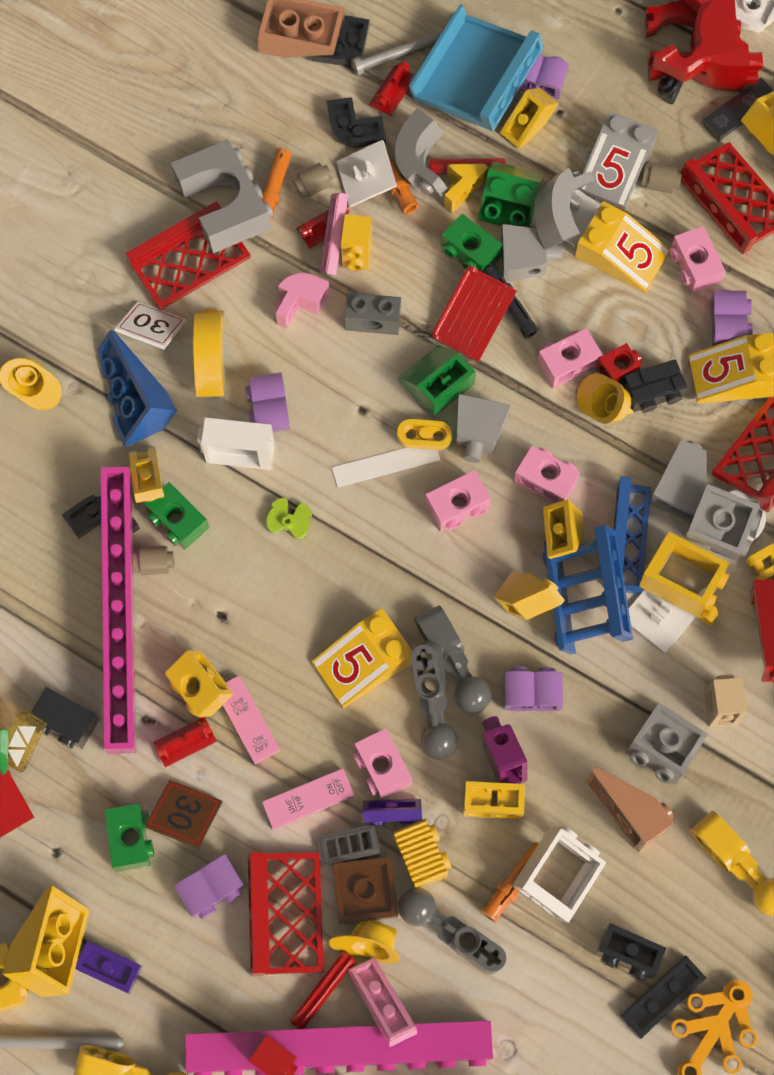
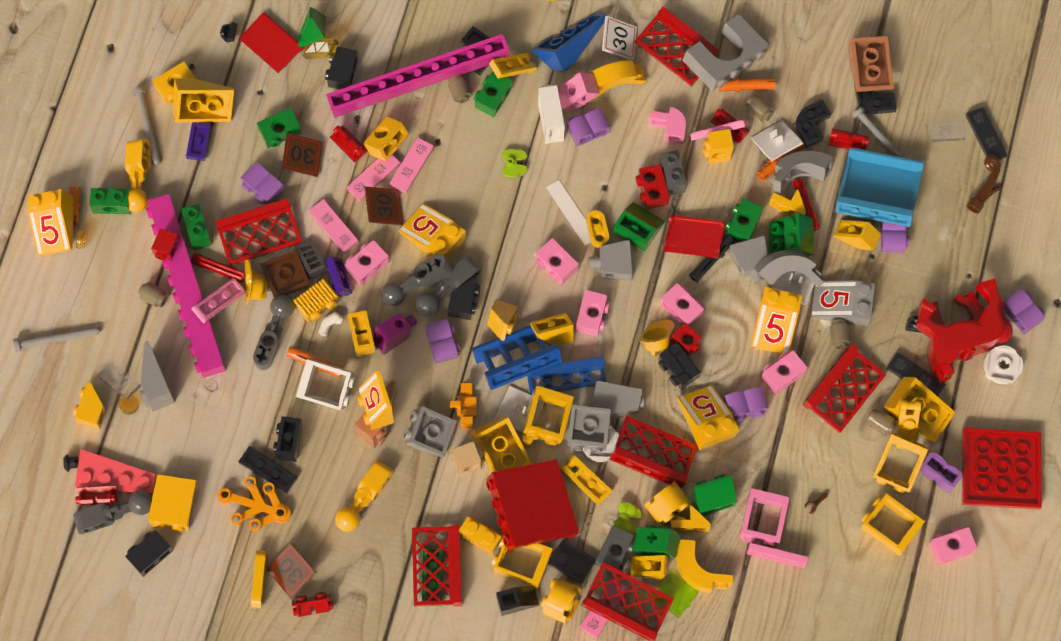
camera: 70 degrees right, 0 degrees up
(219, 384) = (577, 91): none -> bright pink brick
(248, 661) = (411, 165): none -> bright pink tile
(249, 1006) = (196, 226): none -> green brick
(301, 716) = (383, 206): none -> reddish brown piece
(385, 337) = (656, 186): none -> red brick
(455, 844) = (328, 321): none -> white arm
(481, 644) = (462, 300): none -> black slope
(634, 796) = (375, 402): none -> yellow slope
(639, 684) = (465, 406): none -> light orange piece
(715, 649) = (500, 444): none -> yellow slope

